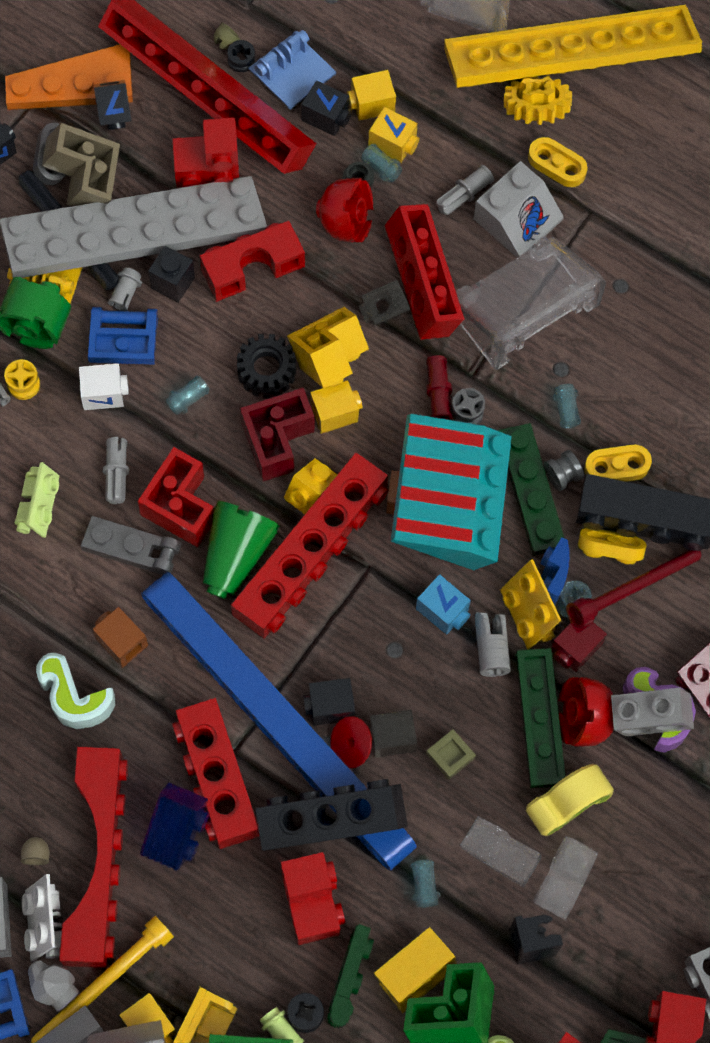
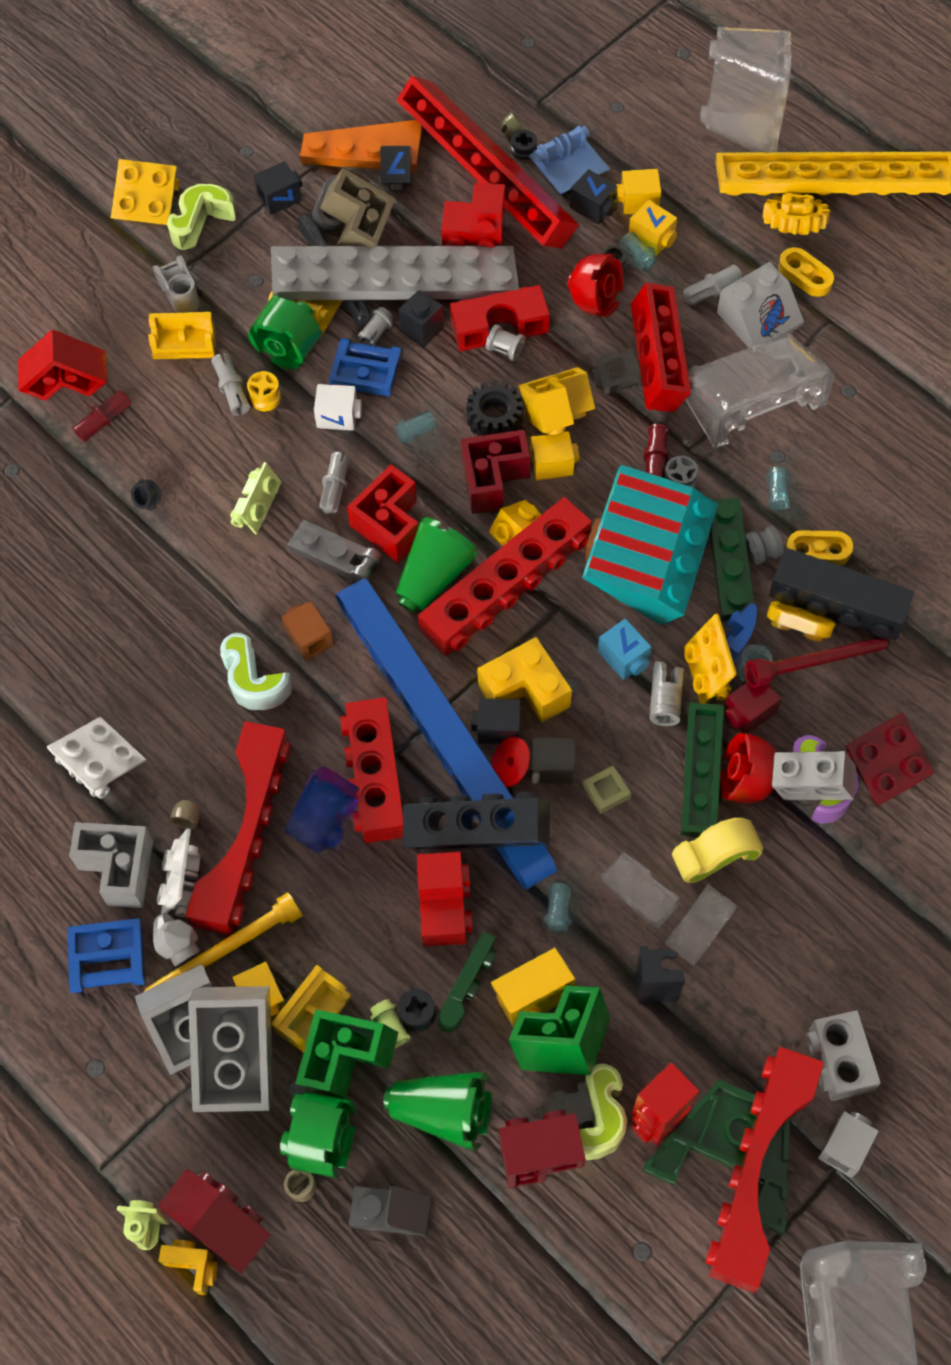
camera: 15 degrees right, 5 degrees down
(263, 287) = (505, 342): none -> light grey bush
(355, 647) = (528, 674): none -> yellow brick

